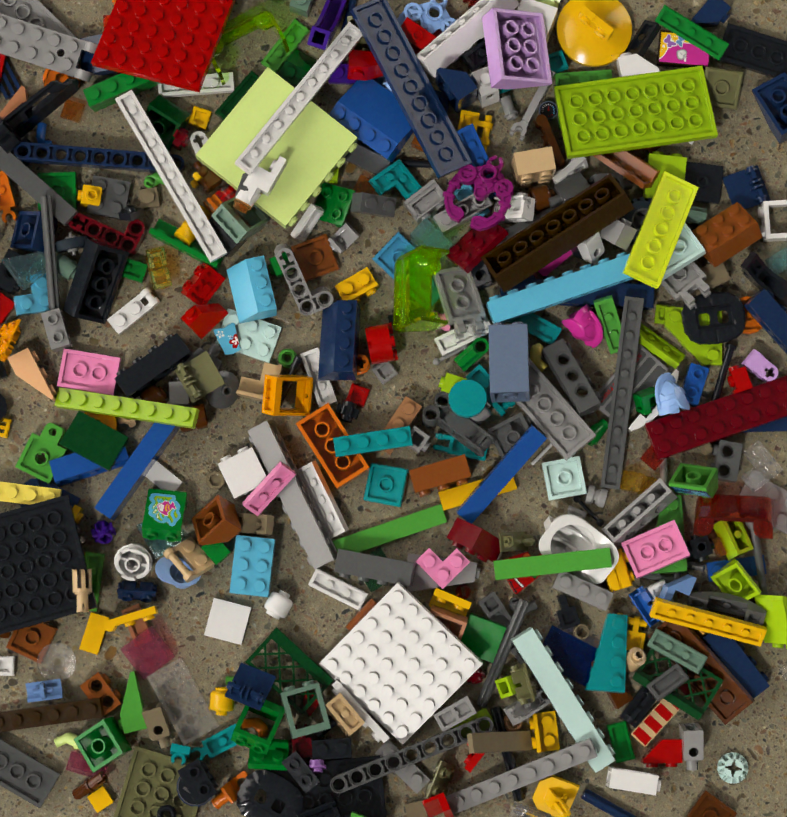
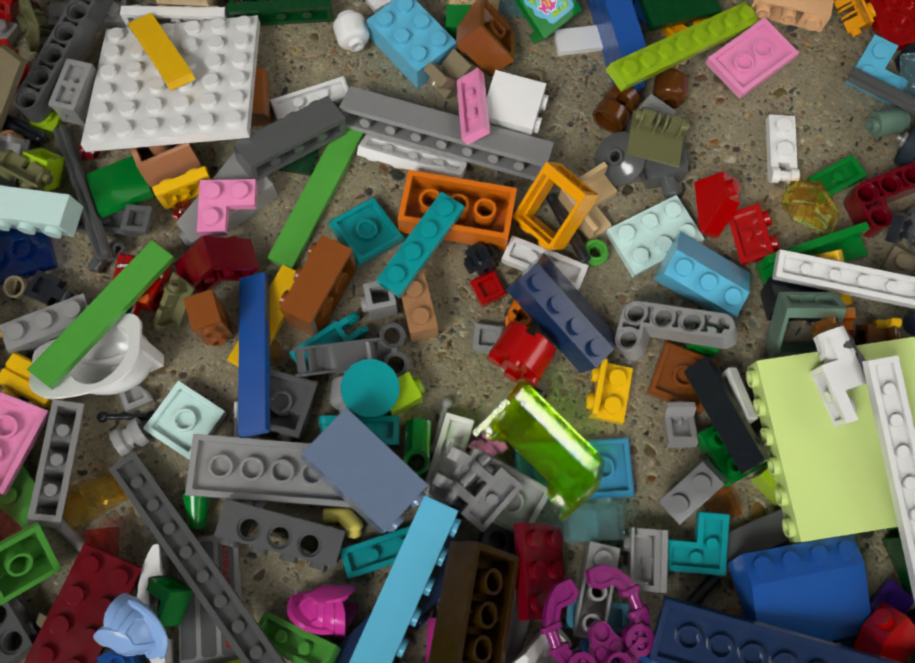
camera: 130 degrees right, 10 degrees down
(56, 330) = (825, 60): light grey brick -> none
(95, 281) = (850, 131): black slope -> none
(153, 367) = (708, 109): black brick -> none
(228, 339) = (670, 208): medium azure sticker -> none
(321, 220) = (726, 415): none -> black tile
(392, 685) = (161, 51): none -> yellow tile
(466, 294) = (489, 498): none -> flat silver plate
(506, 512) = (208, 318): none -> dark orange brick

